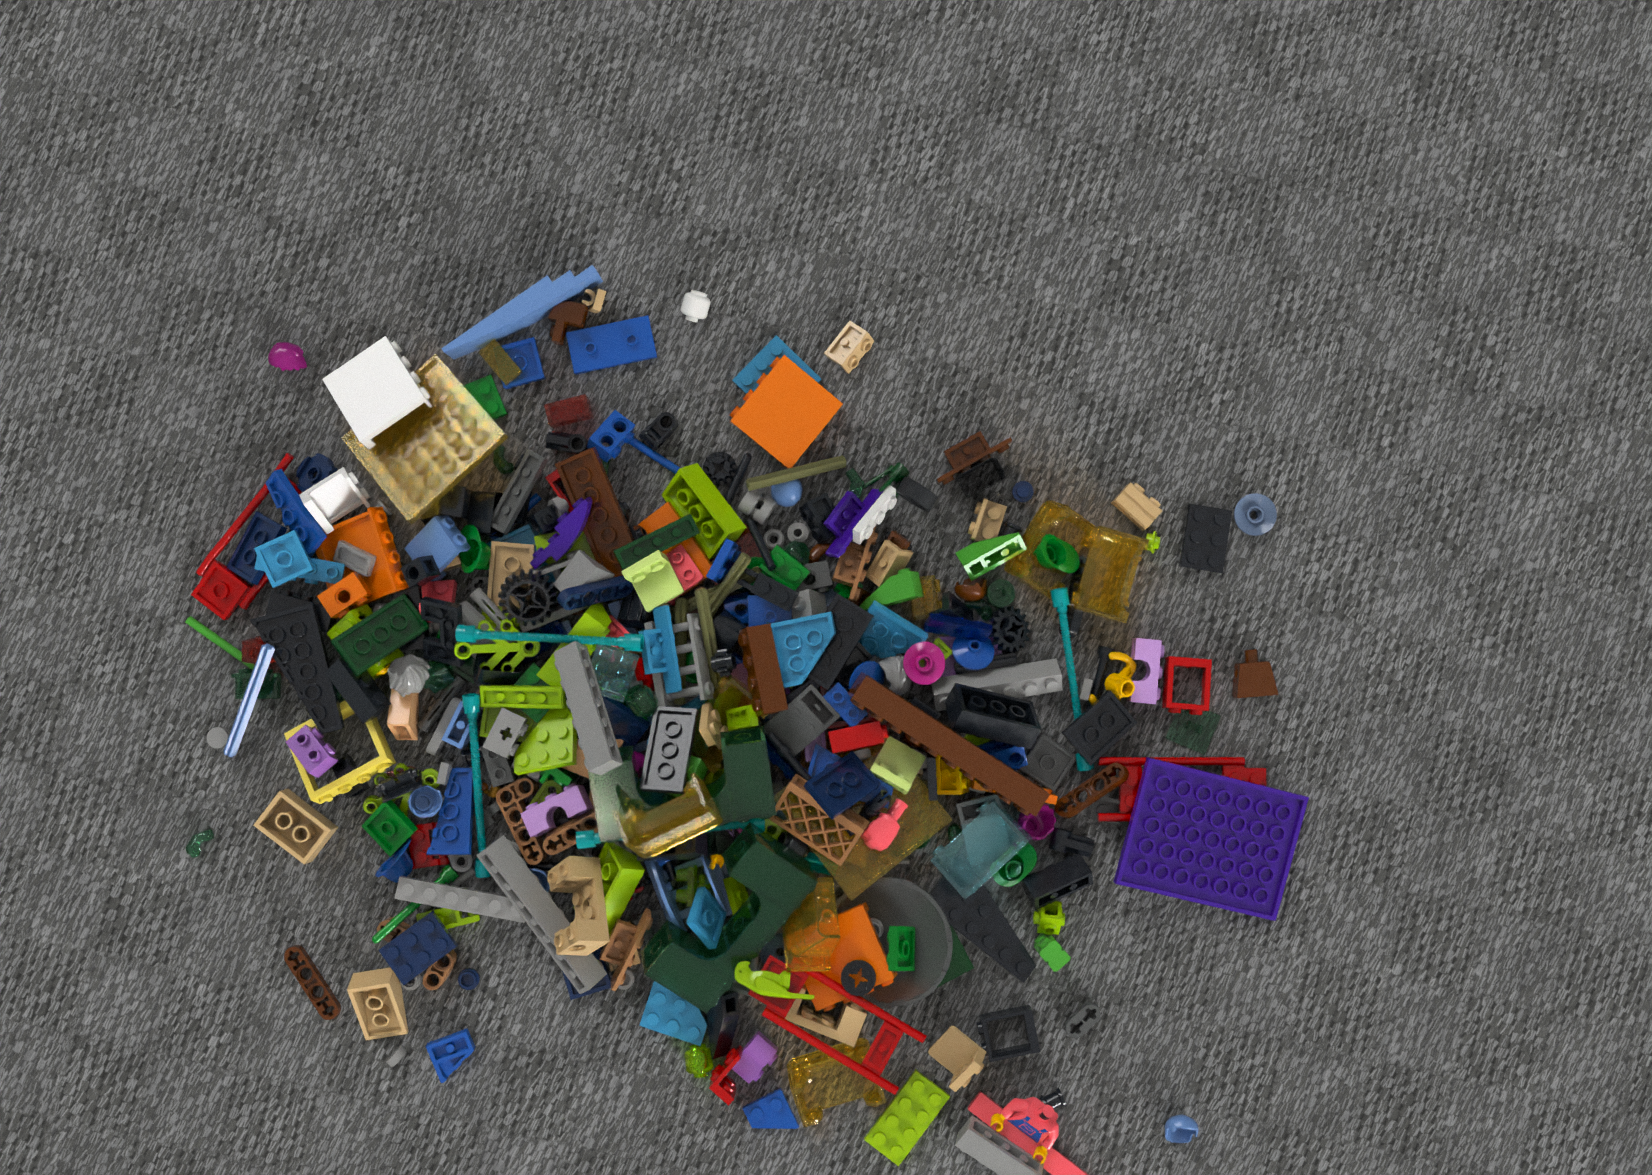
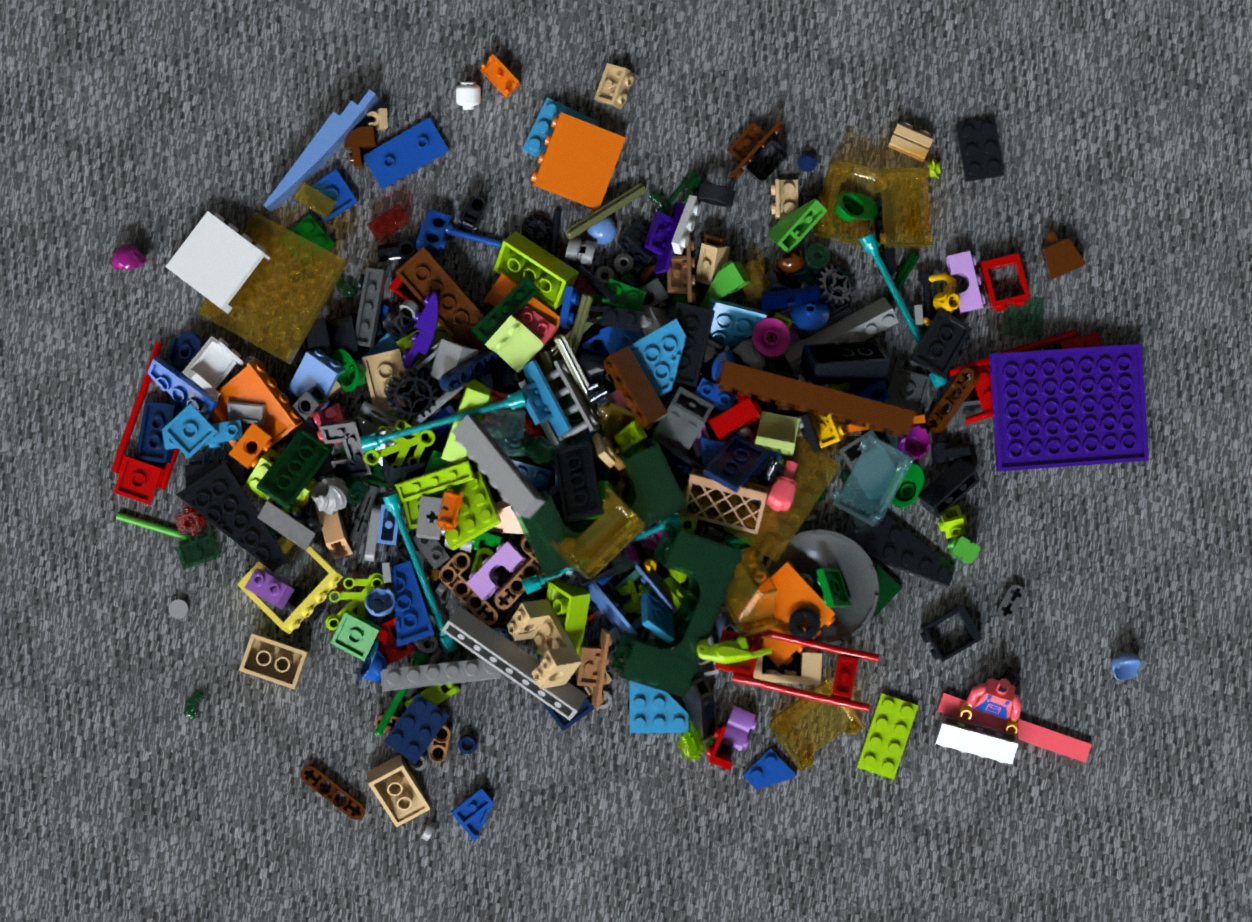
camera: 15 degrees left, 0 degrees up
(249, 699) = (197, 565): axle -> none
(407, 781) = (359, 588): black hinge -> none
(523, 742) = (453, 501): none -> orange hinge
(734, 297) = (500, 76): none -> orange hinge
(959, 1056) = (913, 666): tan bracket -> none
(1082, 641) = (902, 274): none -> dark green axle
(1262, 507) = (1022, 108): sand blue dish -> none

